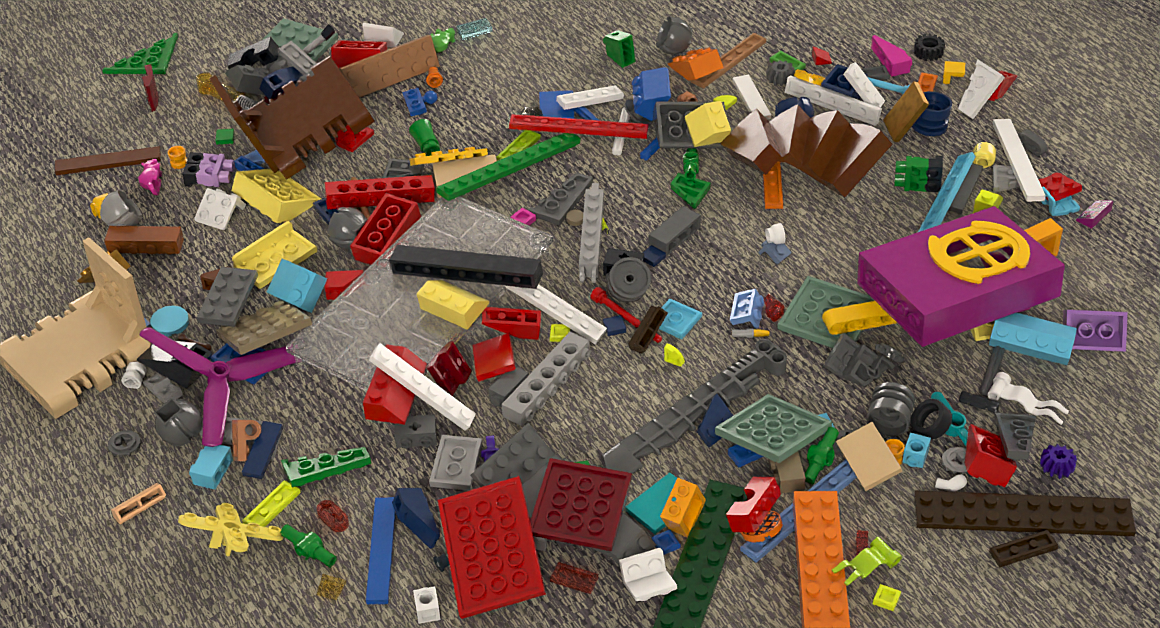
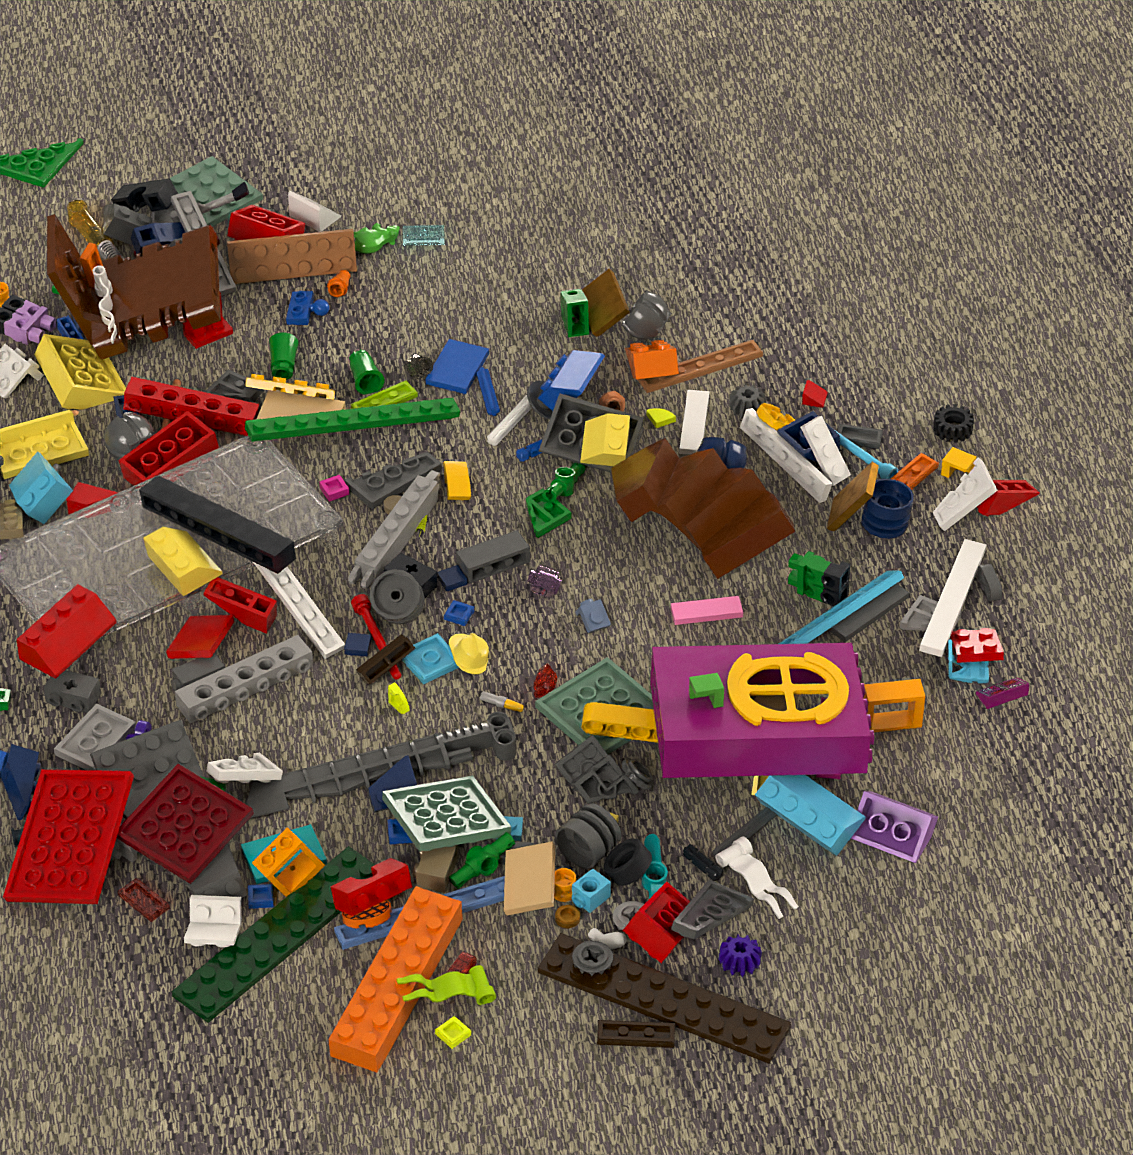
camera: 20 degrees right, 0 degrees up
(150, 88) = (12, 202): dark red slope -> none
(253, 108) = (89, 259): none -> orange tile
(268, 124) = (103, 289): none -> white flag
(422, 386) = (94, 644): white plate -> none
(449, 368) = (143, 634): dark red slope -> none
(496, 132) = (366, 374): none -> green plant
(558, 332) = (290, 630): neon yellow tile -> none
(578, 126) = (463, 396): red tile -> none
(590, 97) = (501, 363): white tile -> none
(597, 446) = (244, 769): none -> white wing
(612, 186) = (457, 480): none -> yellow slope
(643, 35) = (605, 302): none -> pearl gold tile
(674, 279) = (459, 613): none -> blue tile
(703, 303) = (469, 652): none -> light yellow piece
(724, 236) = (544, 581): none -> clear purple head
(747, 307) = (516, 673): medium blue bracket -> none
(773, 188) = (643, 540): orange tile -> none
(775, 234) = (594, 596): white piece -> none
(785, 57) = (769, 386): bright green tile -> none
(851, 221) = (706, 610): none -> bright pink tile
(893, 57) = (897, 423): dark pink slope -> none
(909, 476) = (567, 916): none -> pearl gold tile
(931, 265) = (707, 685): none -> bright green panel
(954, 494) = (596, 950): none -> dark grey gear
(985, 154) = (919, 579): light yellow head -> none
(986, 200) = (878, 639): neon yellow slope -> none

